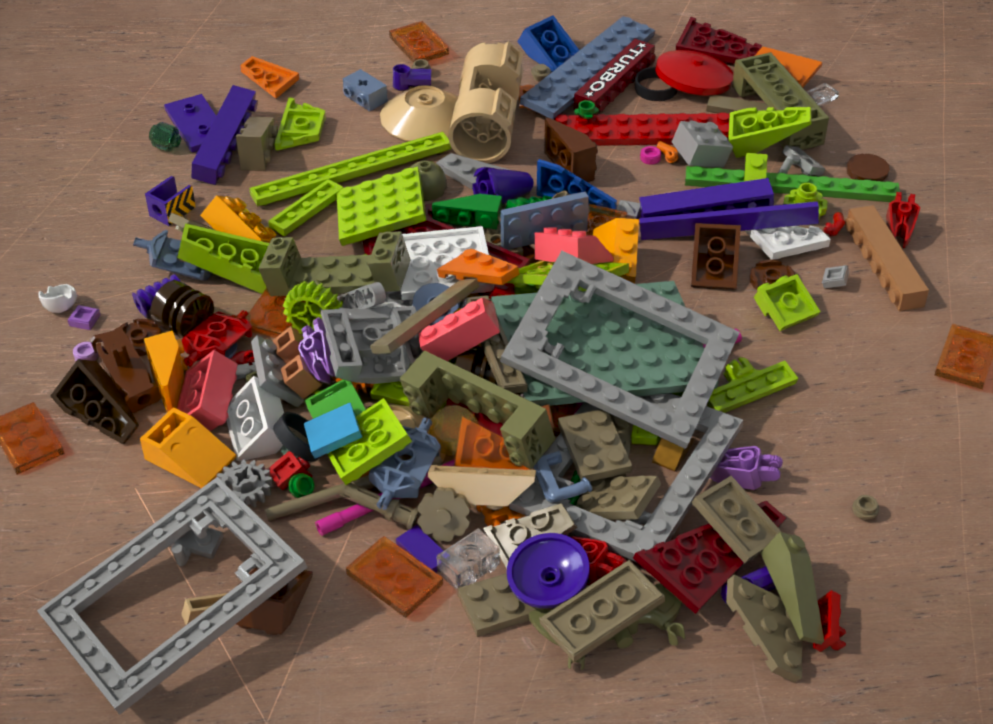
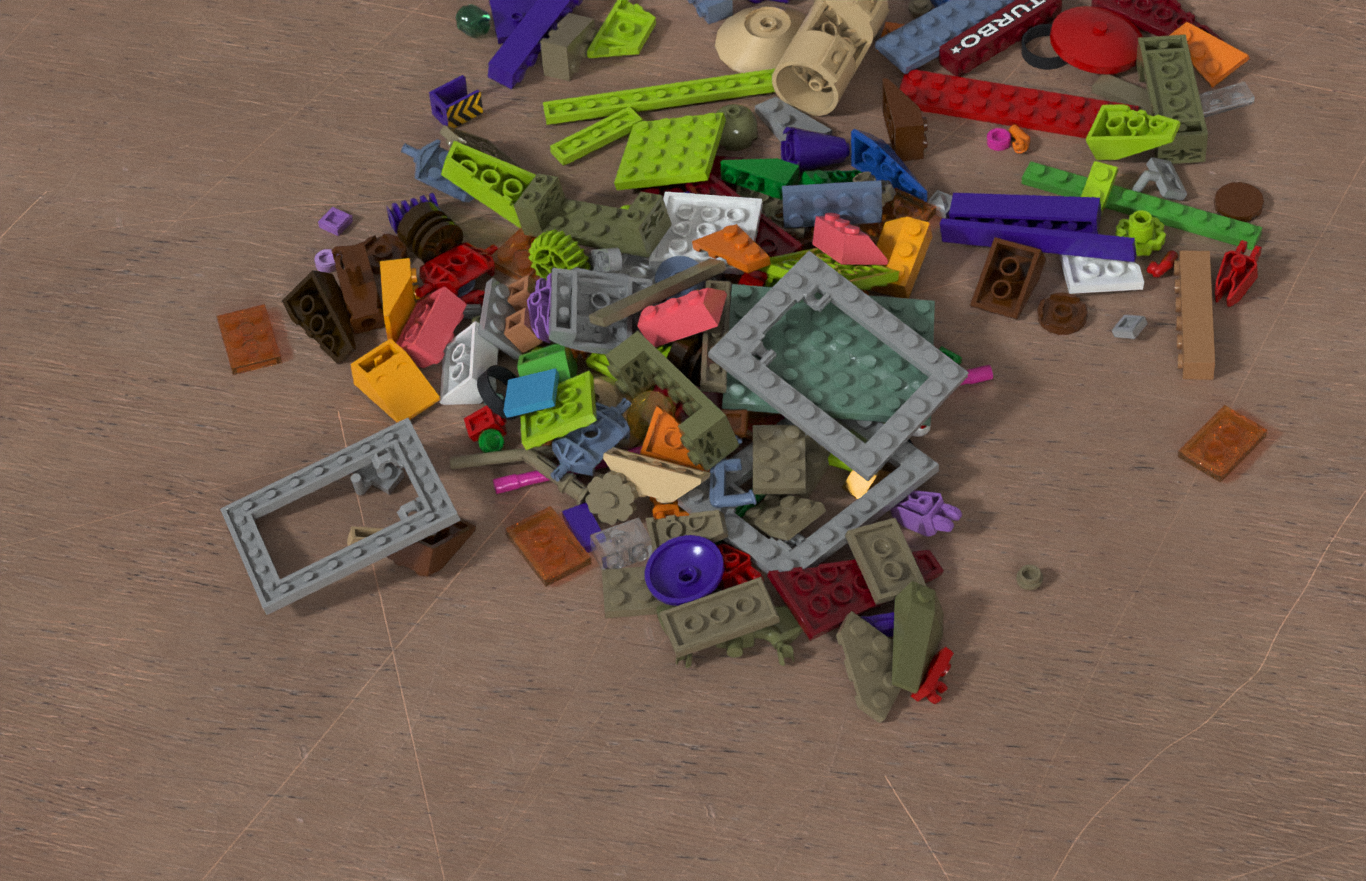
camera: 20 degrees right, 5 degrees up
(58, 298) = (314, 195): white hair -> none
(232, 217) = (513, 140): light orange slope -> none
(248, 481) = (438, 428): light grey gear -> none
(586, 109) = (944, 70): green plate -> none
(702, 144) = (1055, 138): light grey brick -> none
(749, 384) = (973, 428): lime plate -> none
(786, 302) = (1058, 345): lime plate -> none

